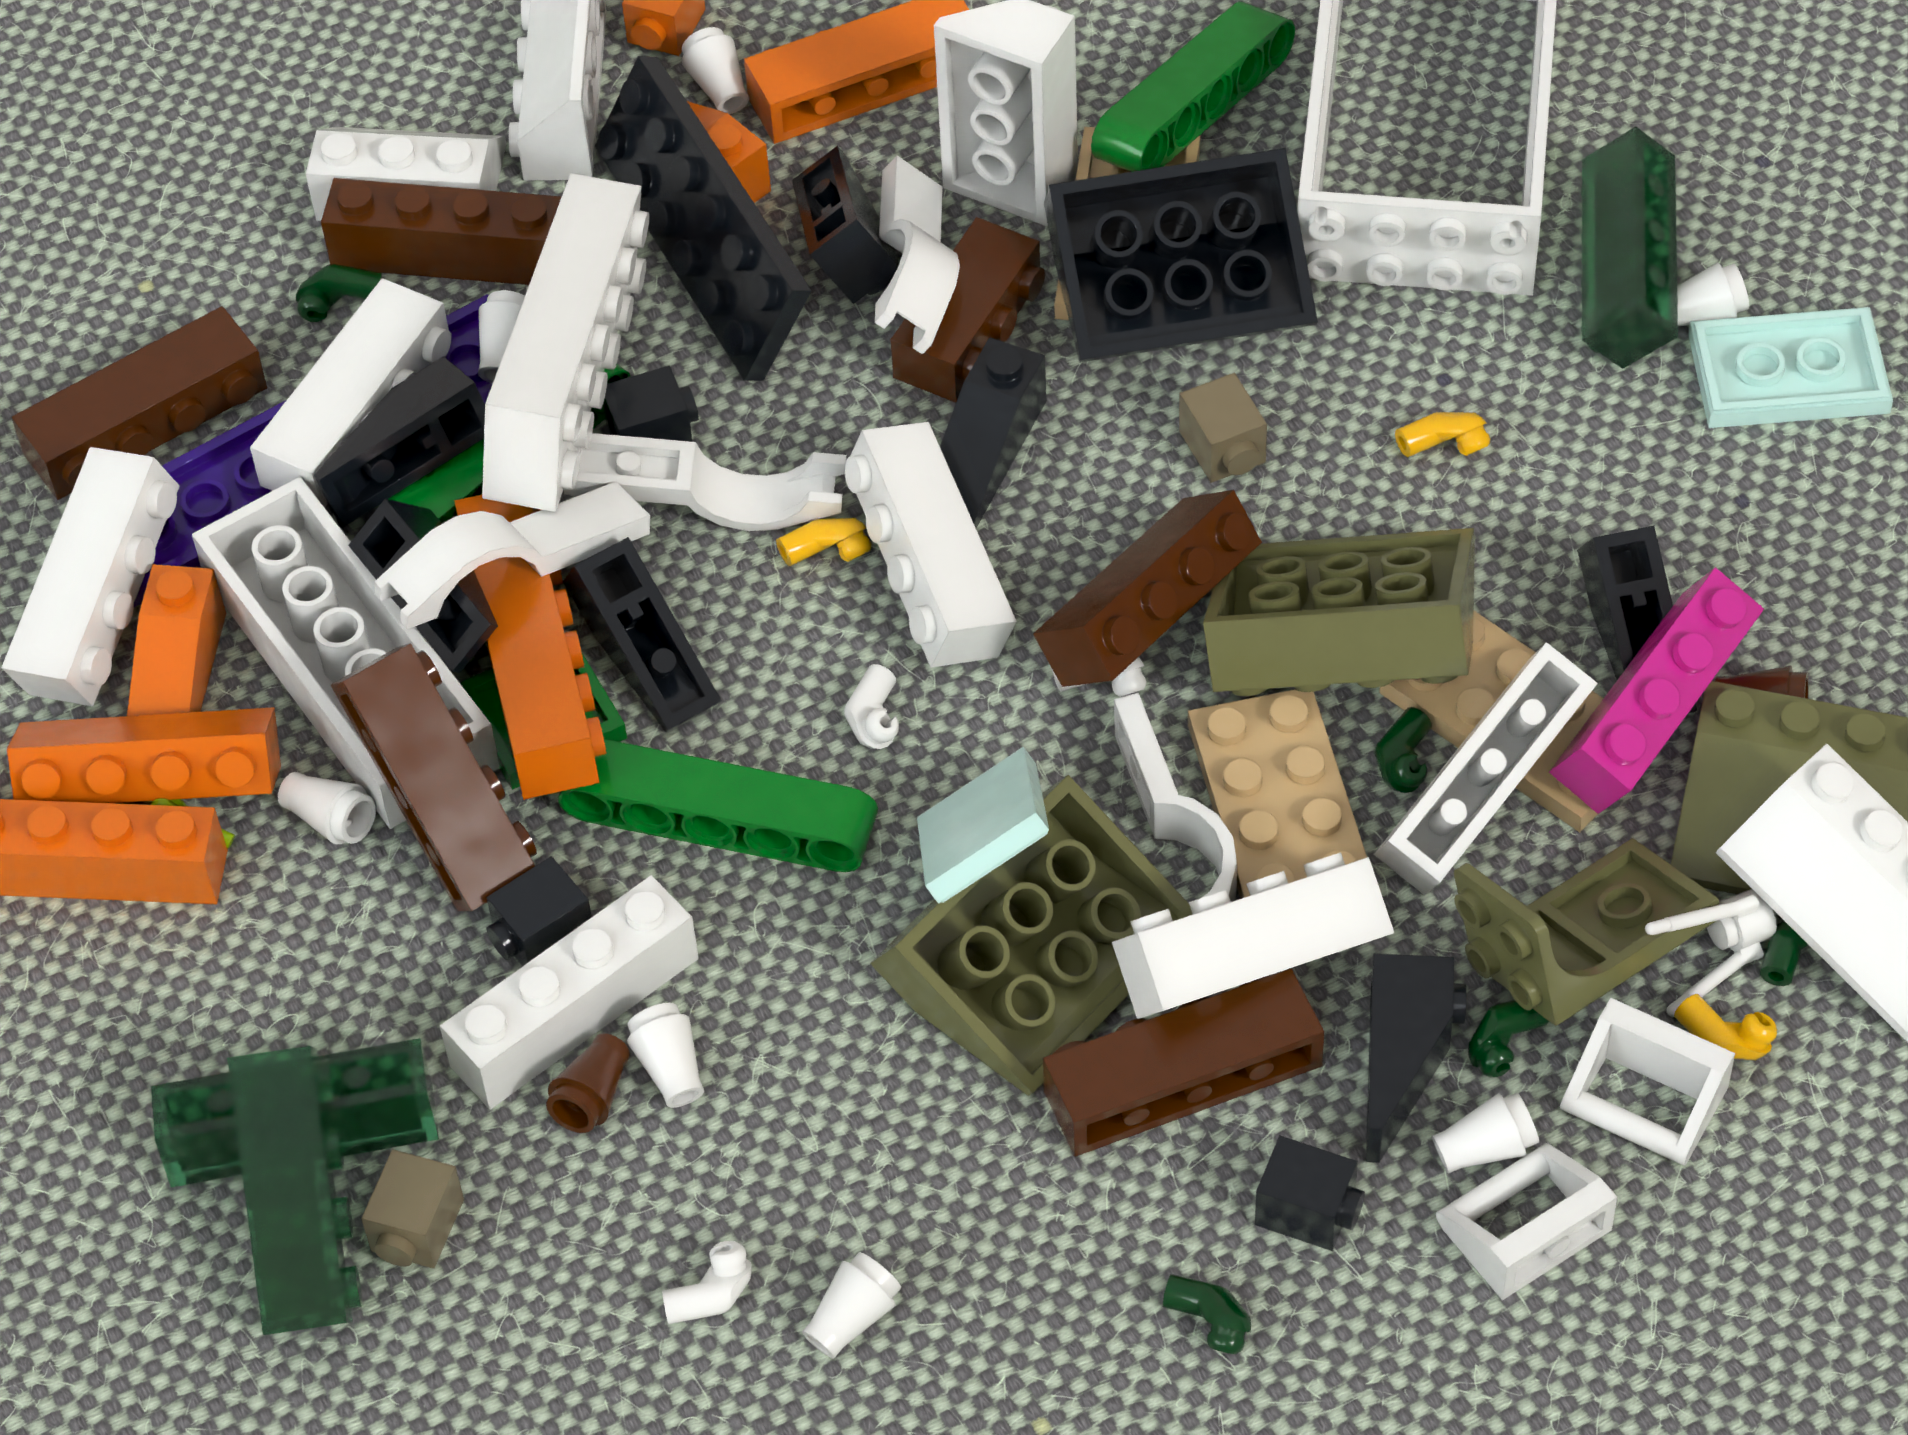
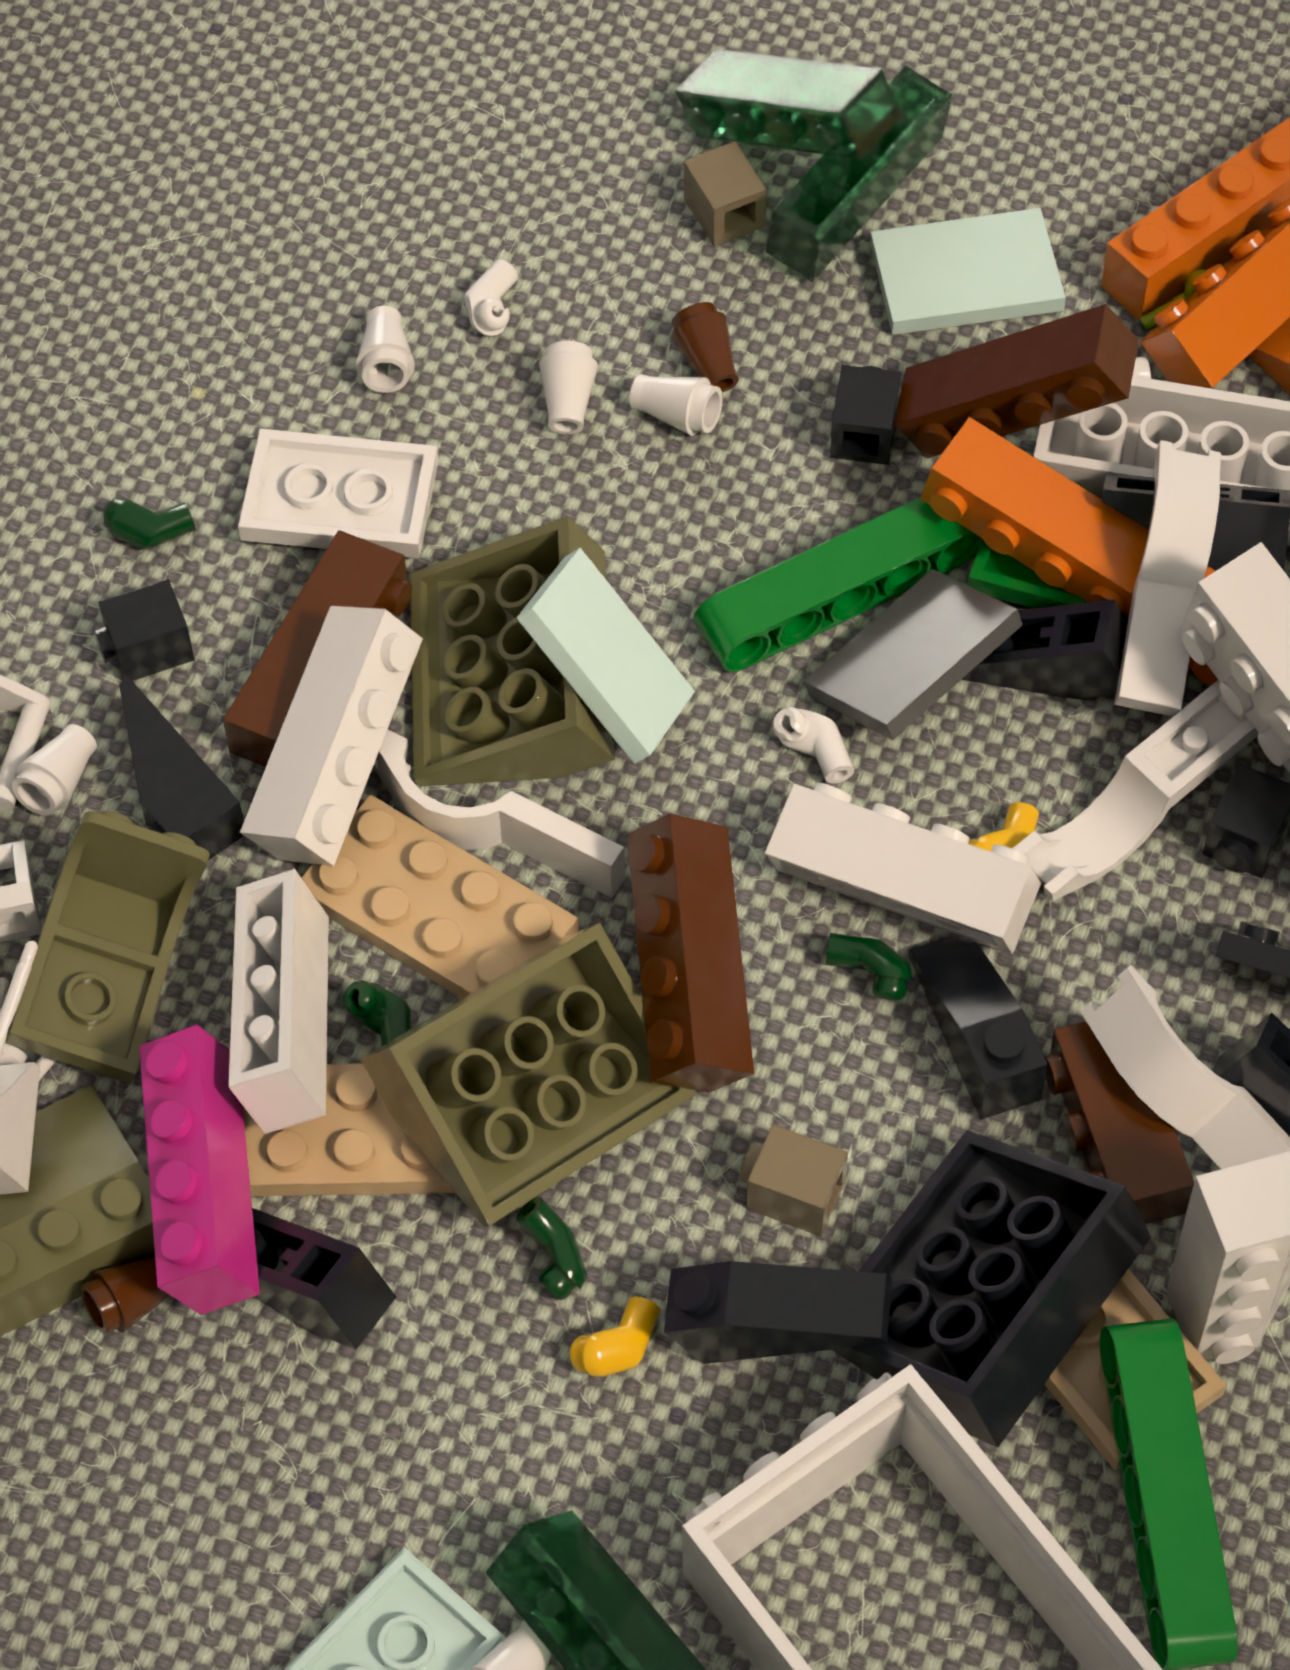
camera: 135 degrees right, 5 degrees up
(302, 984) = (967, 271): none -> light aqua tile
(570, 992) = (782, 381): white brick -> none
(734, 1144) = (567, 383): none -> white cone
(737, 695) = (913, 653): none -> tile
(1003, 532) = (874, 956): none -> dark green arm
(1025, 1199) = (319, 484): none -> white plate
(1333, 334) = (774, 1310): none -> black slope
(1433, 502) = (559, 1243): none -> dark green arm

